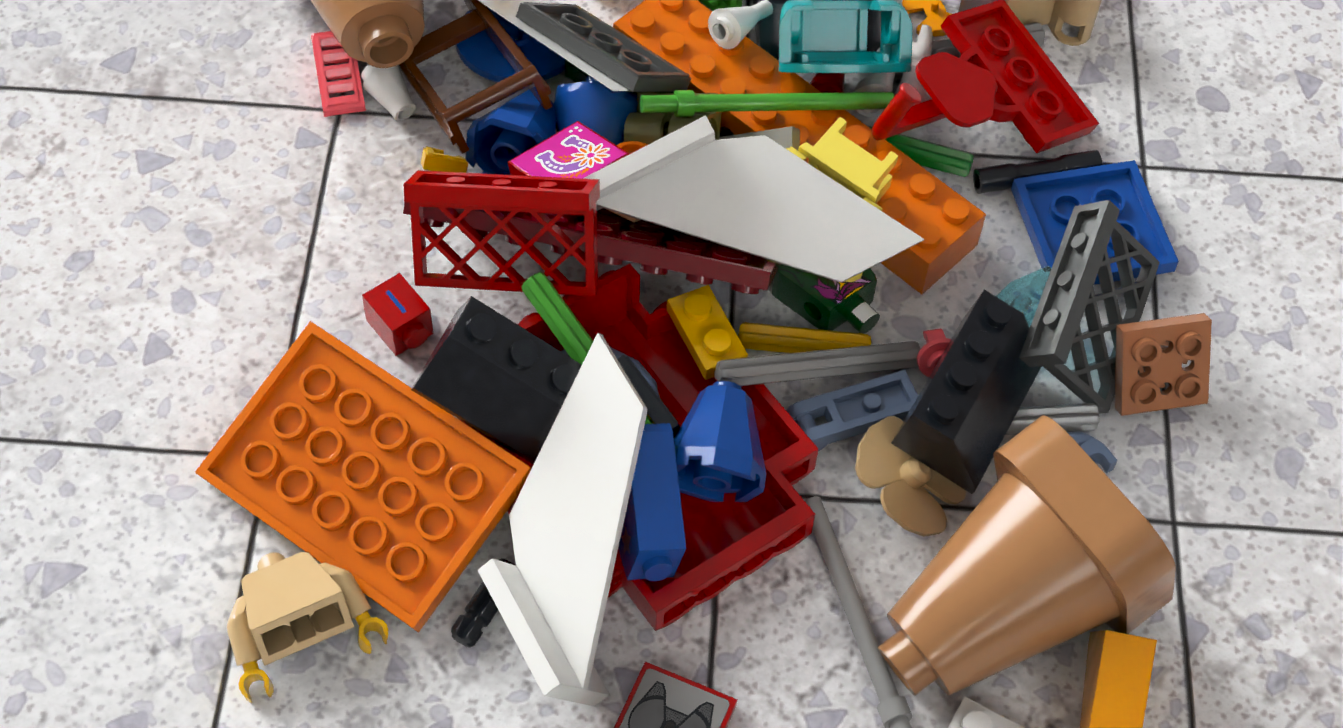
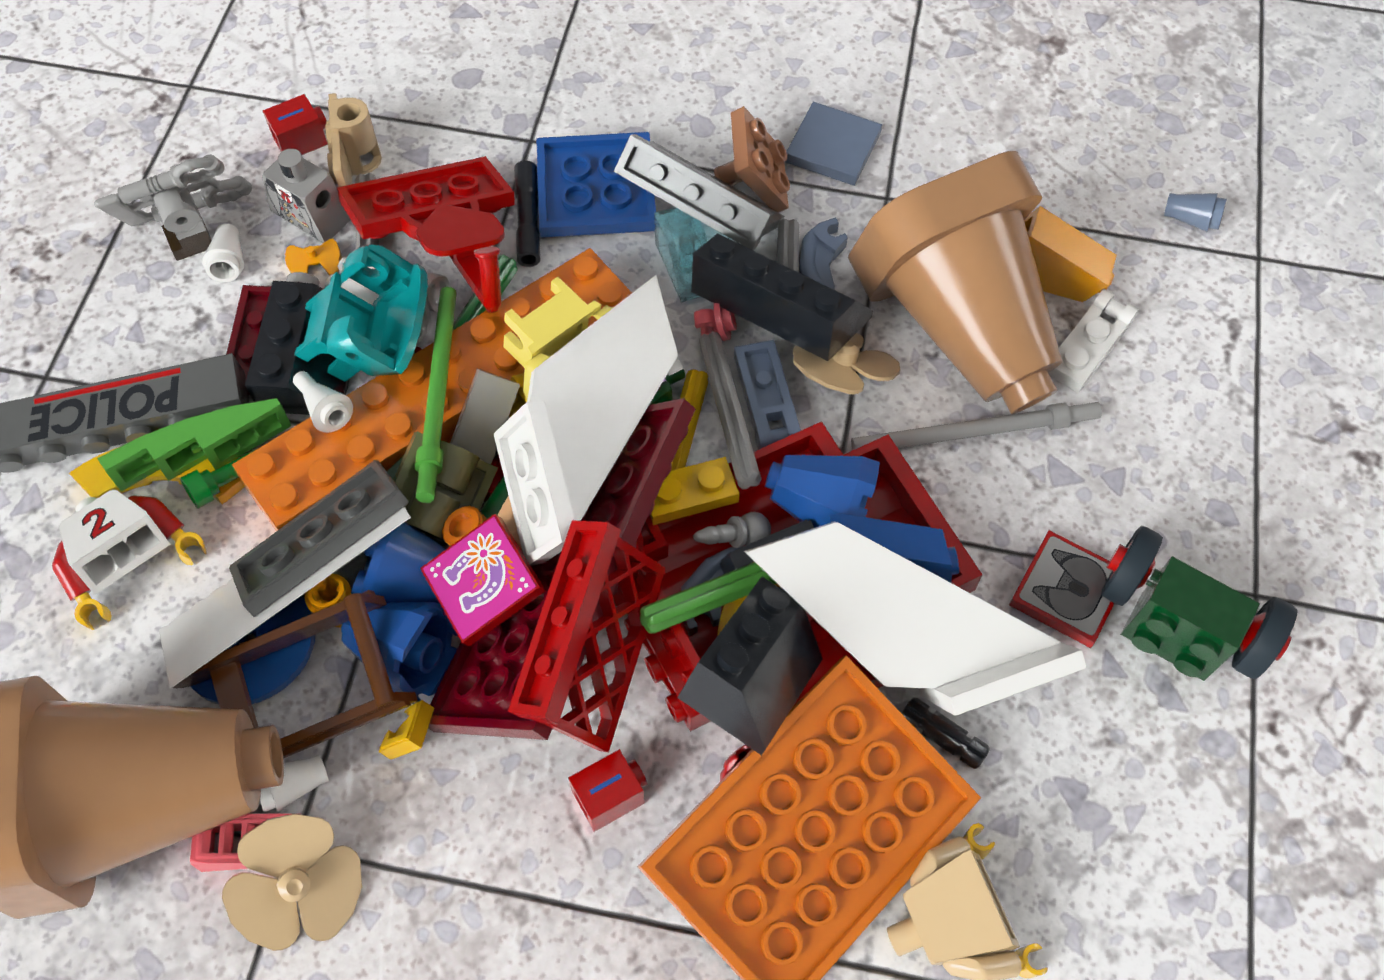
camera: 80 degrees left, 5 degrees up
(293, 113) = (306, 871): none -> tan piece
(554, 71) = (327, 593): none -> light orange cone
(674, 392) = (737, 531): none -> light grey bar
(1235, 456) = (833, 143): none -> sand blue tile

